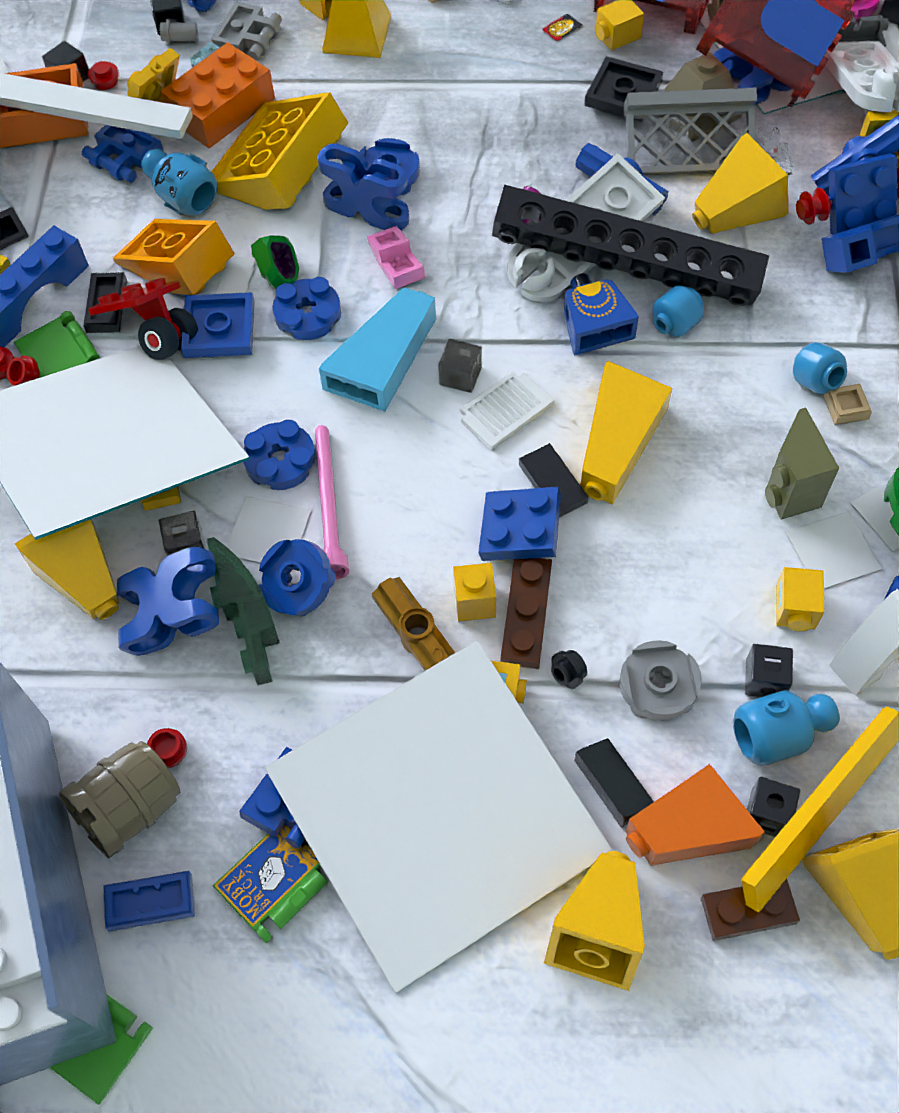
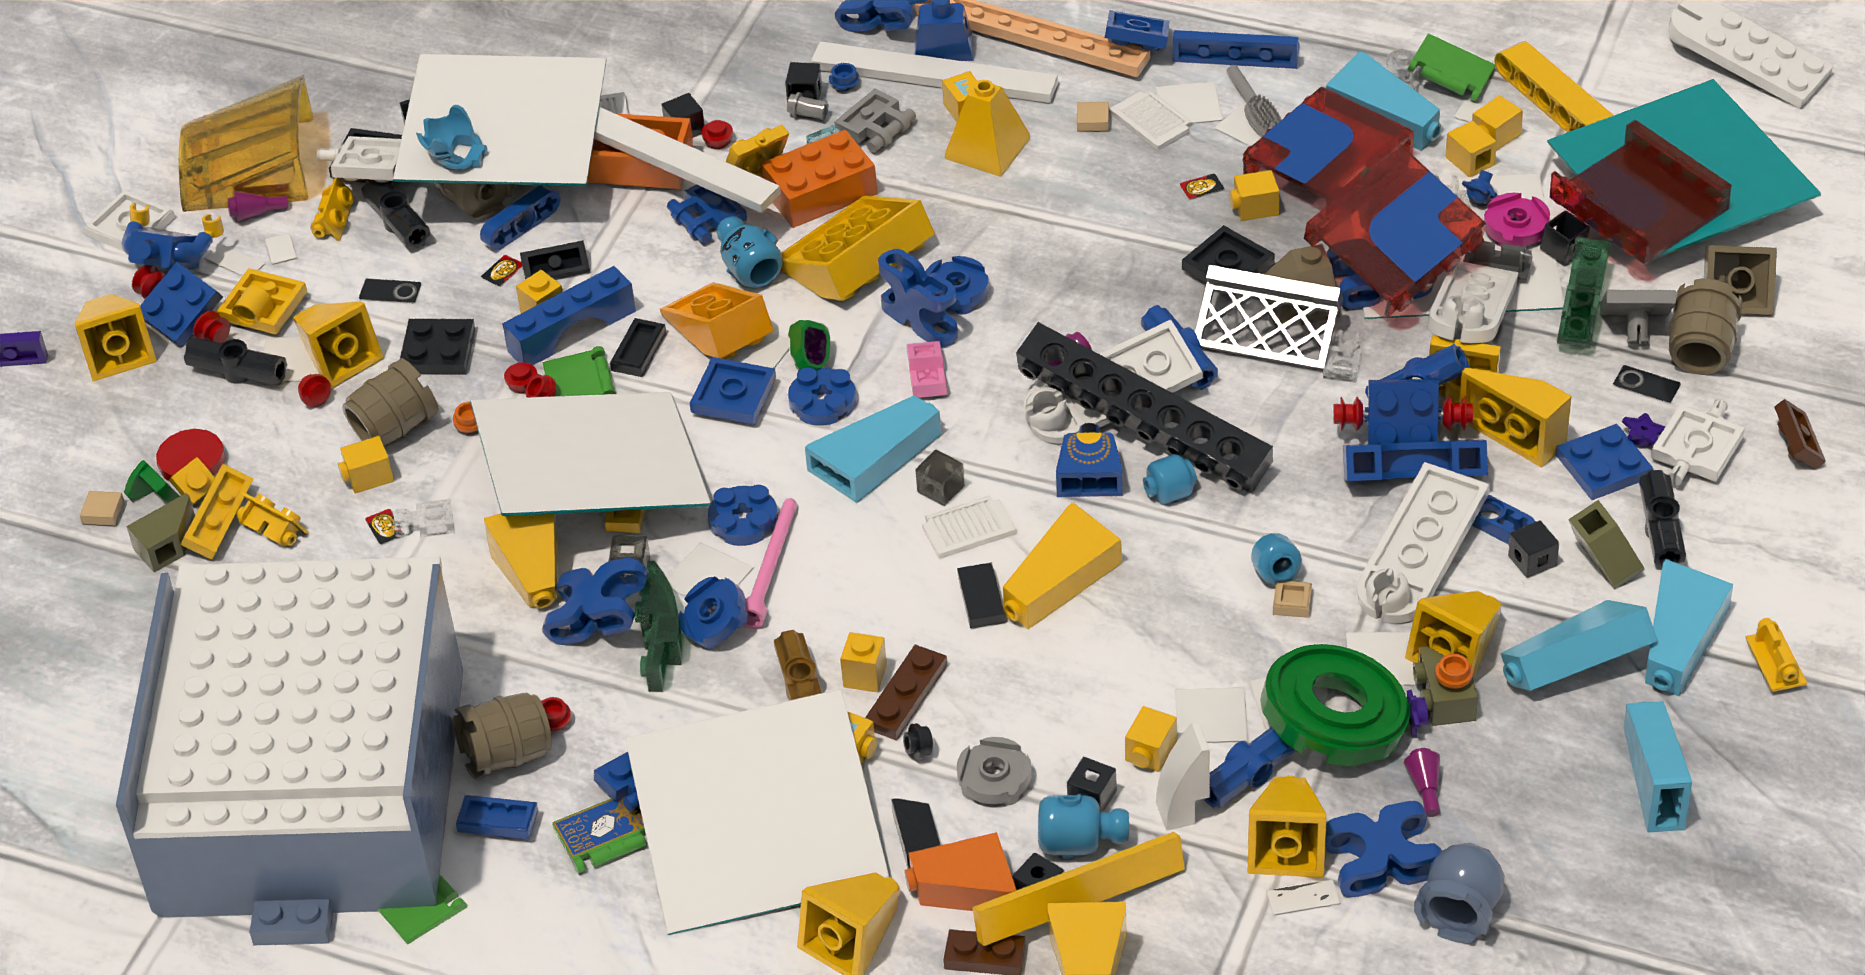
camera: 20 degrees right, 15 degrees down
(162, 329) = (678, 380): plate -> none
(520, 524) = (930, 619): blue plate -> none
(743, 190) = (1284, 385): yellow slope -> none
(802, 470) = (1197, 633): olive slope -> none

